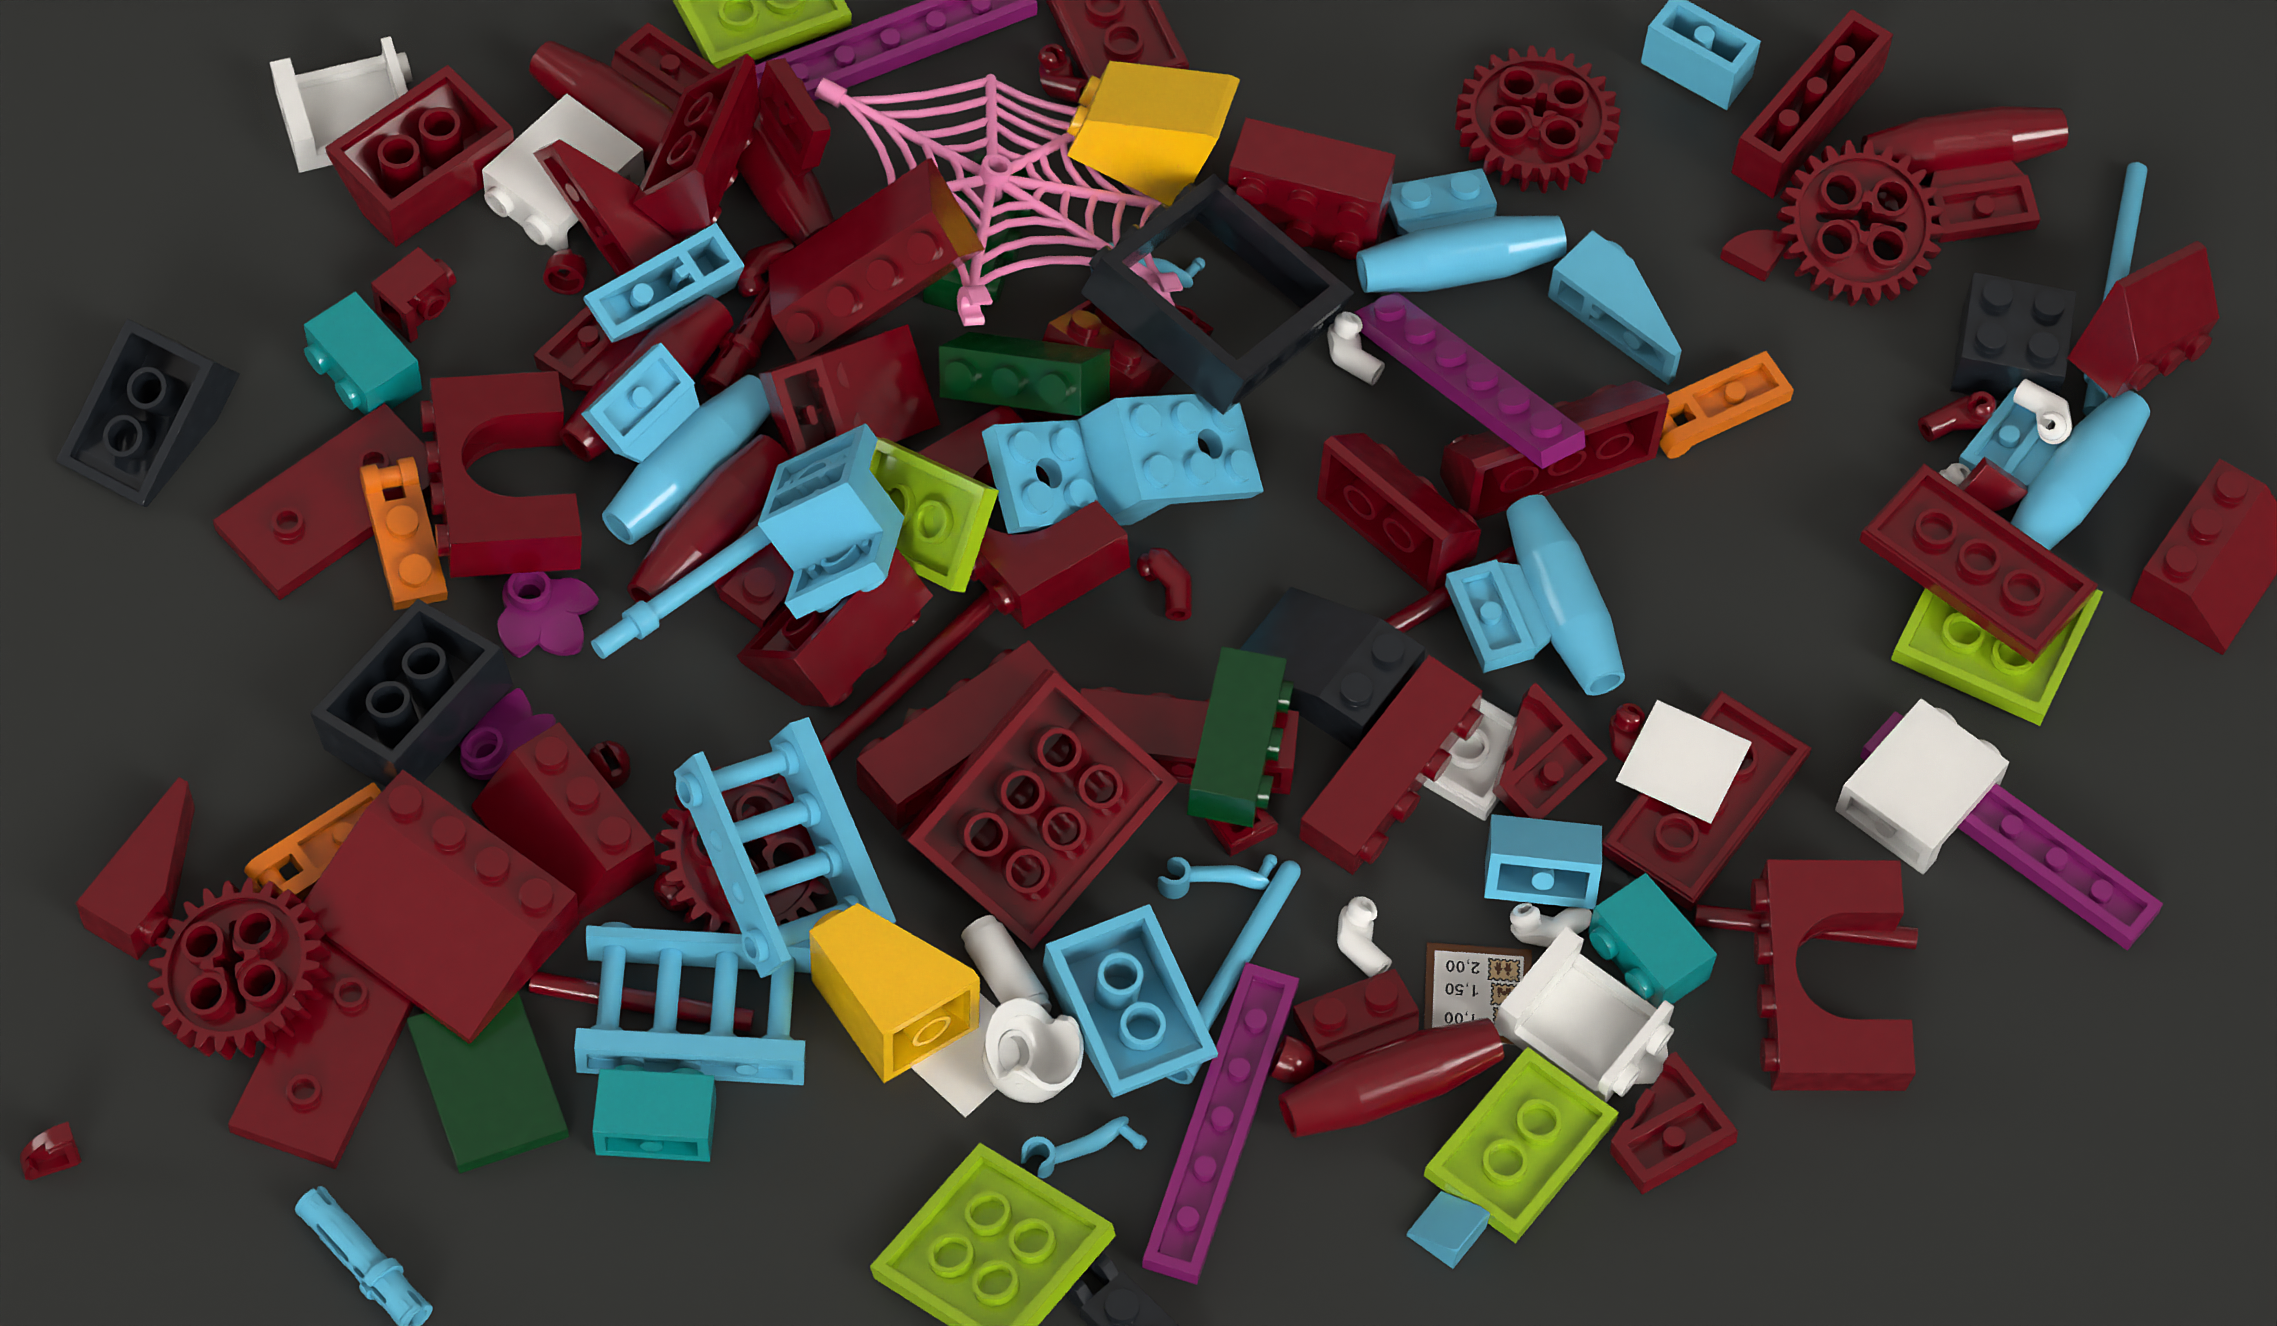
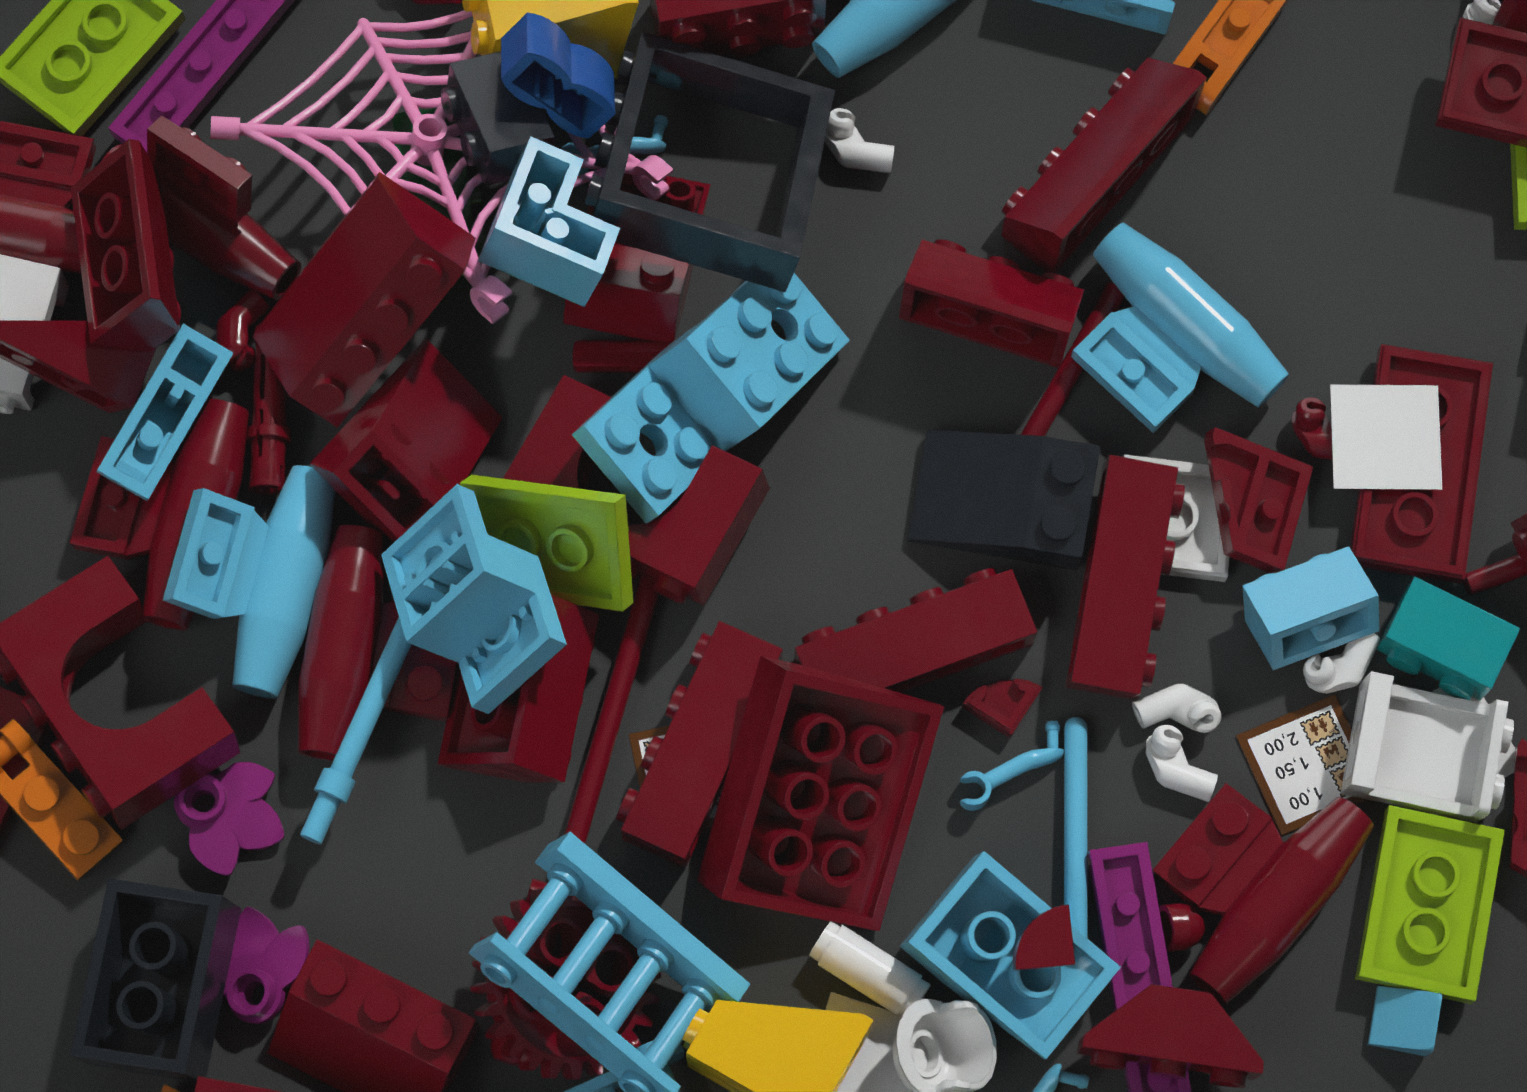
camera: 25 degrees left, 15 degrees up
(575, 274) = (49, 432): dark red hinge -> none
(620, 757) = (369, 953): dark red hinge -> none
(1024, 373) = (565, 342): dark green brick -> none
(1042, 269) = (542, 236): none -> medium azure brick
(1056, 180) = (490, 117): none -> black brick
(1127, 173) = (557, 75): none -> blue brick
(1162, 565) = (810, 473): dark red arm -> none
(1162, 996) = (1046, 941): none -> dark red tile
(1231, 1125) = (1174, 1034): none -> dark red slope
(1240, 737) = (978, 631): dark green brick -> none
(1390, 892) = (1181, 705): none -> white arm
(1471, 380) = (1000, 138): magenta plate -> none

